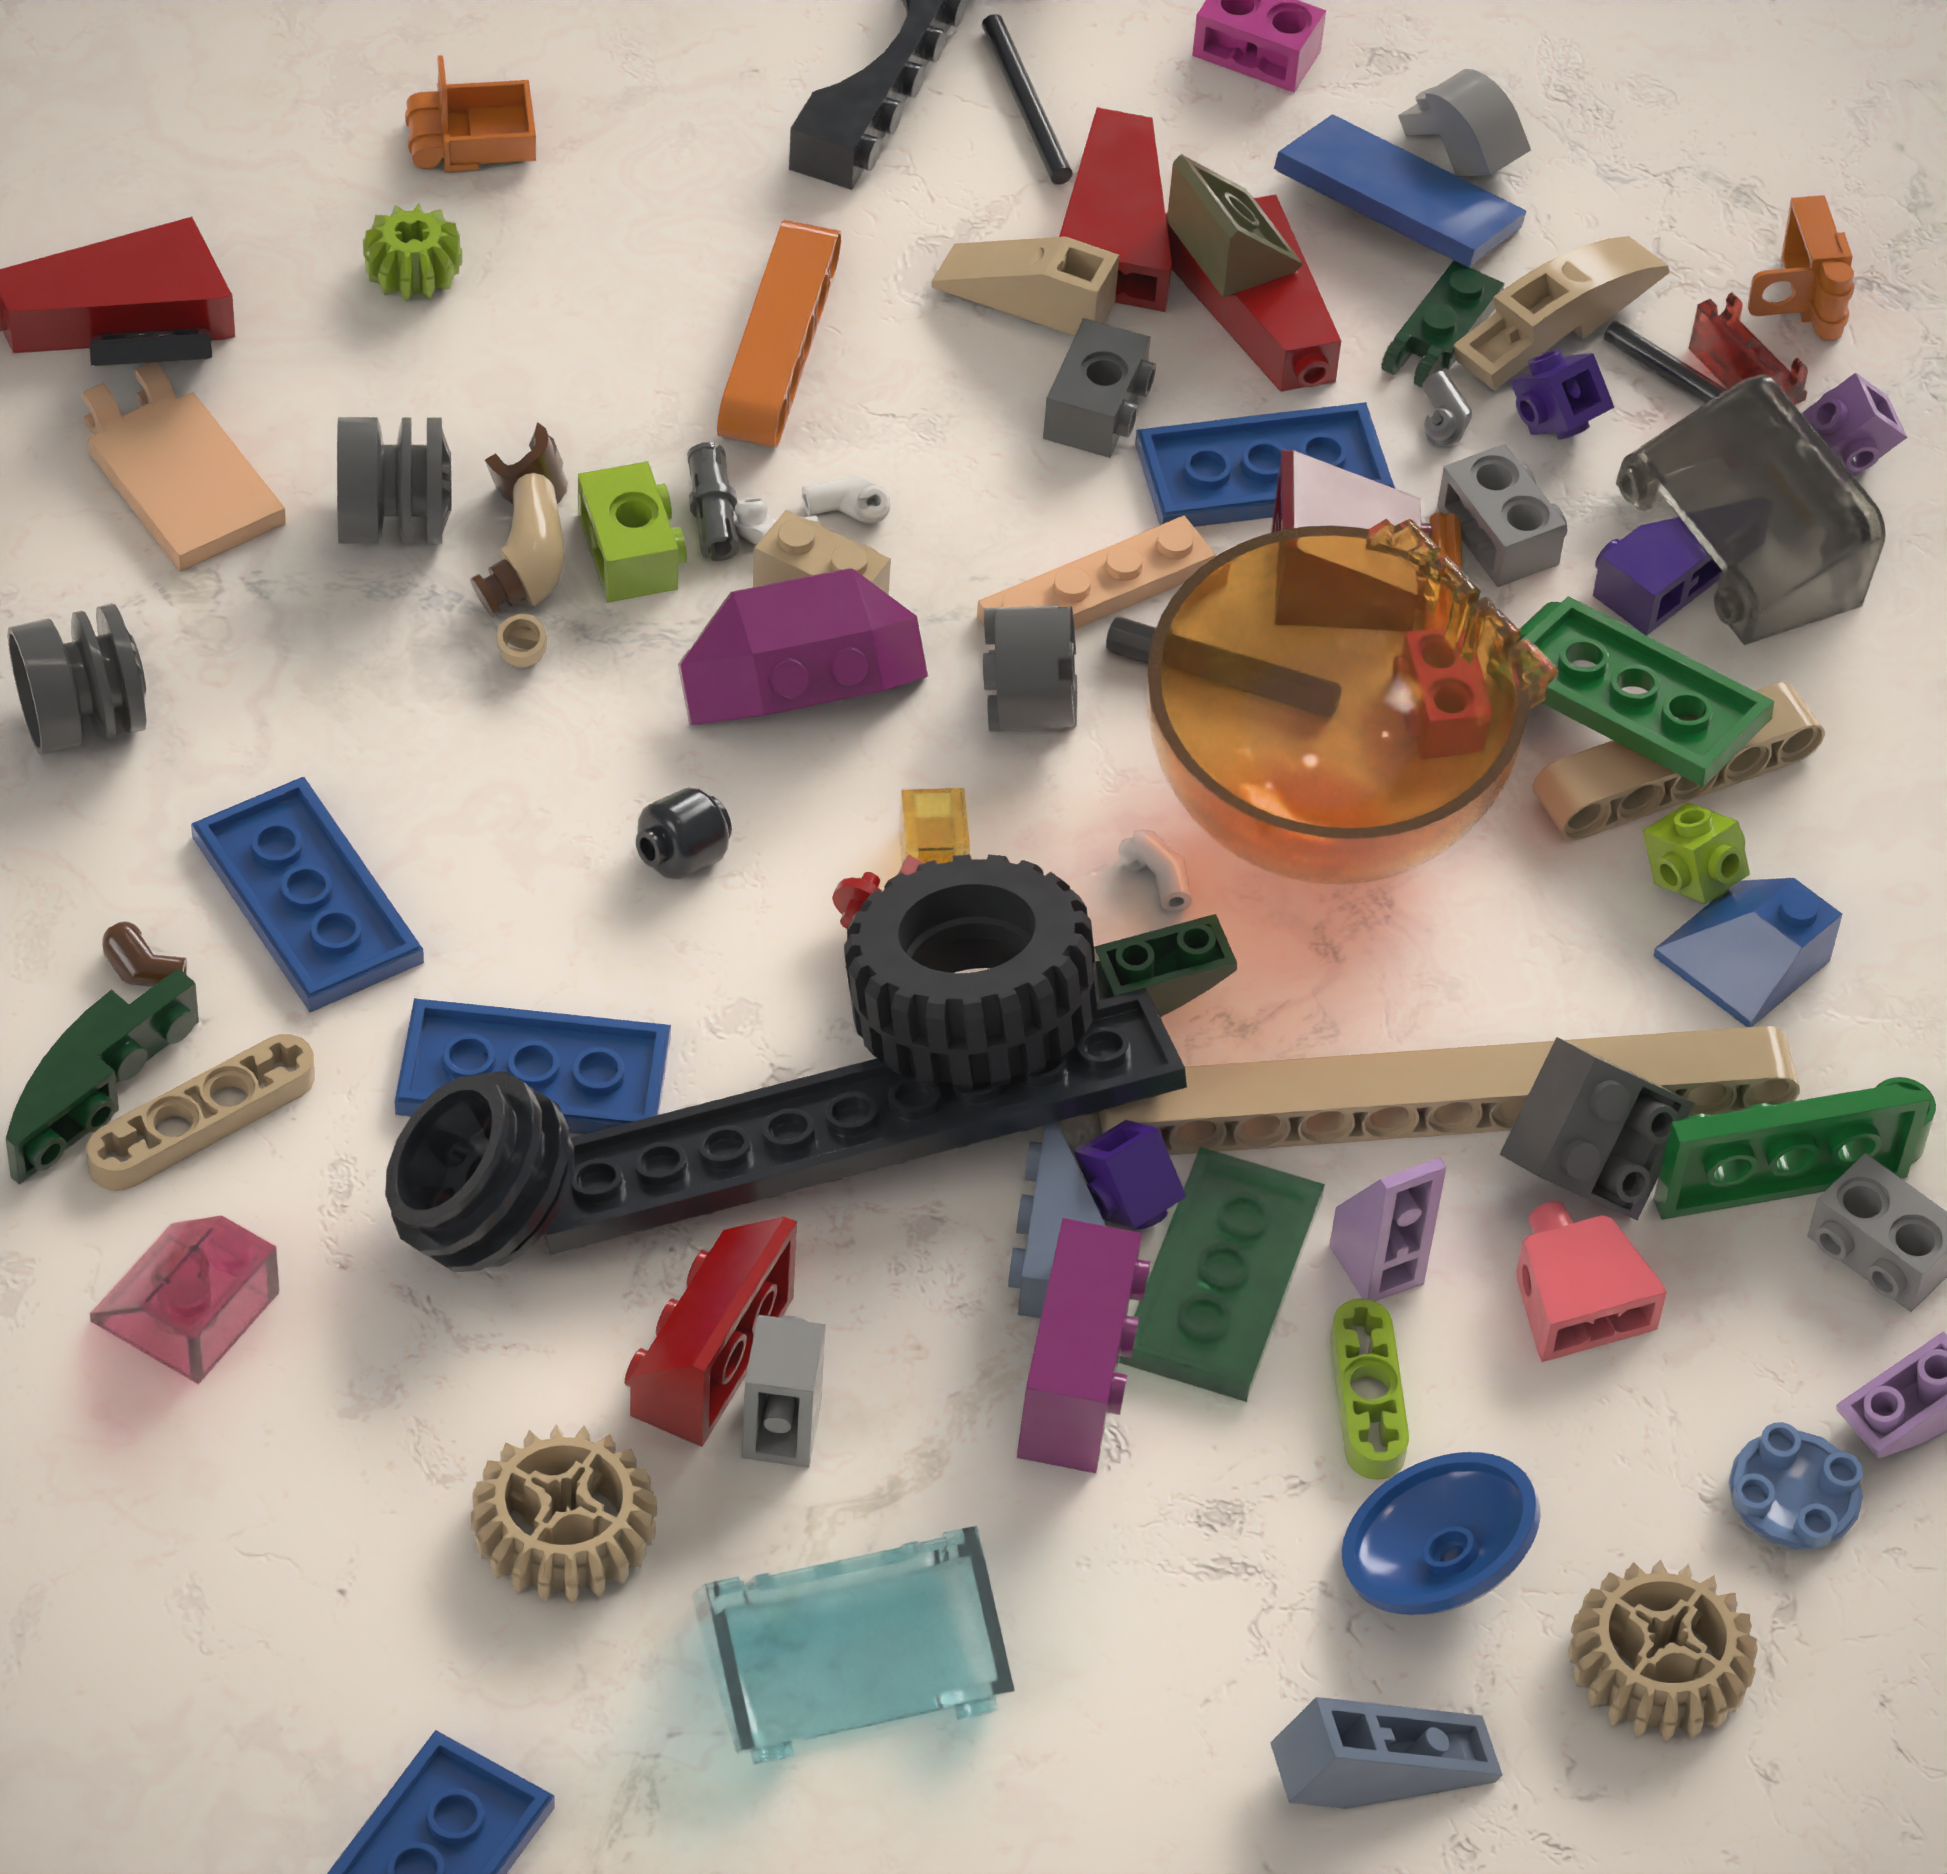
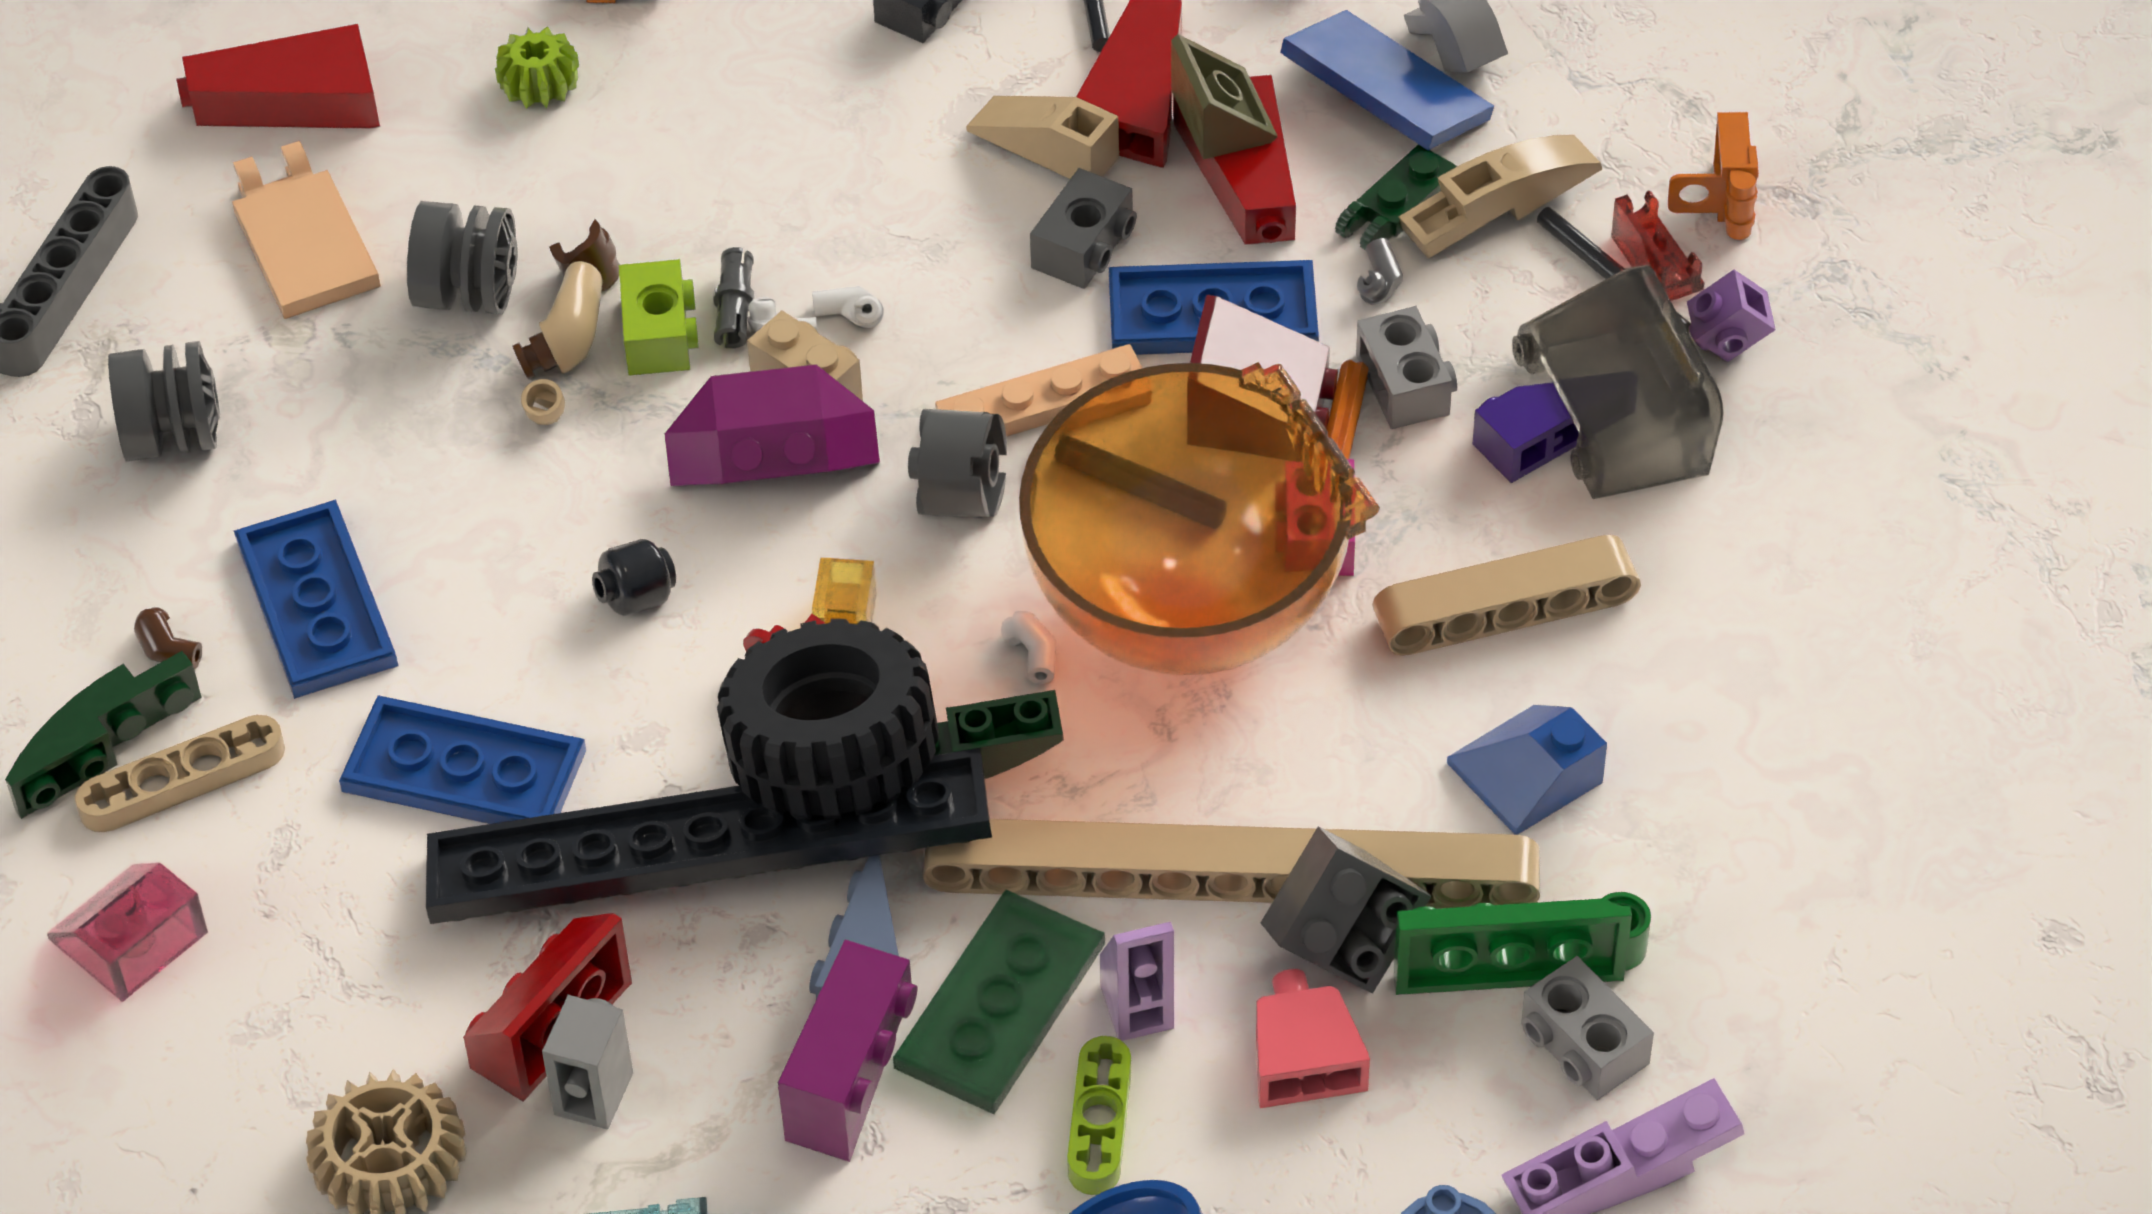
camera: 15 degrees right, 0 degrees up
(150, 346) = (297, 129): black tile -> none
(479, 1171) = (378, 848): black wheel -> none
(779, 334) = (825, 160): orange beam -> none
(1130, 1175) = (932, 909): dark purple brick -> none
(1561, 394) = (1478, 267): dark purple brick -> none
(1645, 721) = (1468, 558): green hinge -> none
(1696, 852) = (1498, 677): lime brick -> none

